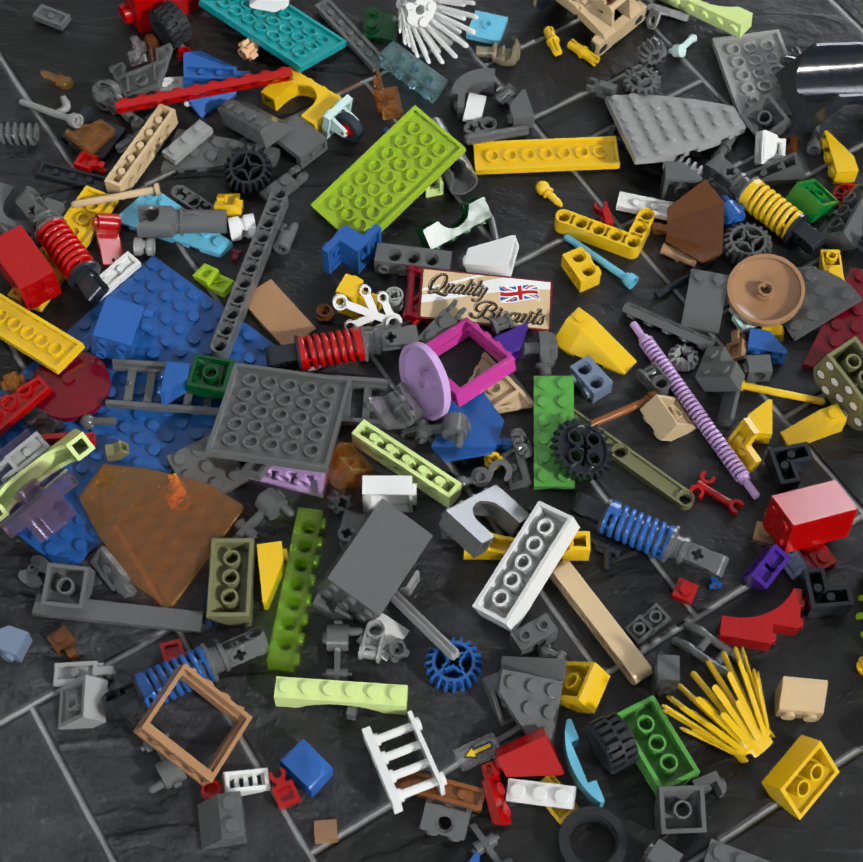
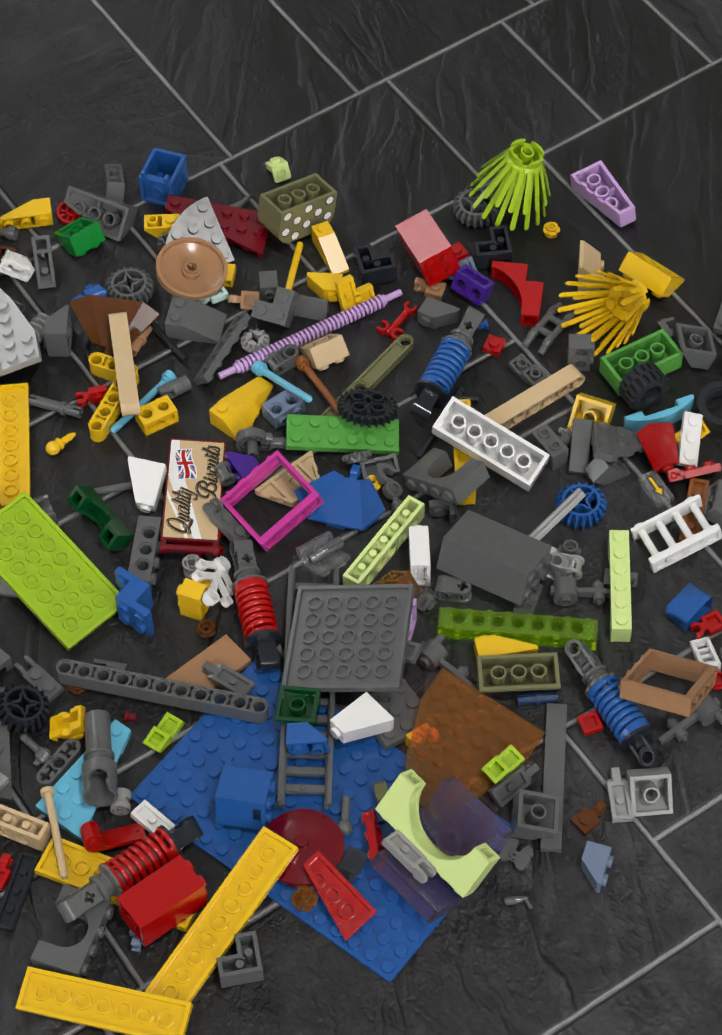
camera: 90 degrees left, 5 degrees down
(125, 558) = (503, 764): none -> lime slope
(189, 428) = (361, 720): none -> white slope
(204, 189) = (42, 754): none -> dark grey piece
(242, 227) = (99, 700): white wheel -> none
(258, 326) = (228, 678): none -> dark grey hinge
(426, 379) = (301, 519): lavender dish -> none
(452, 429) = (346, 506): dark grey piece -> none
(591, 193) = (63, 408): none -> dark grey pin
(616, 284) = (175, 387): none -> dark grey hinge
(633, 203) = (78, 366): white plate -> none
(635, 232) = (124, 364): none -> tan beam
(641, 359) = (260, 369): none -> medium azure piece
(724, 529) = (437, 313): none -> dark grey slope
(763, 343) = (245, 278): blue slope -> none
(766, 205) = (86, 268): piece -> none

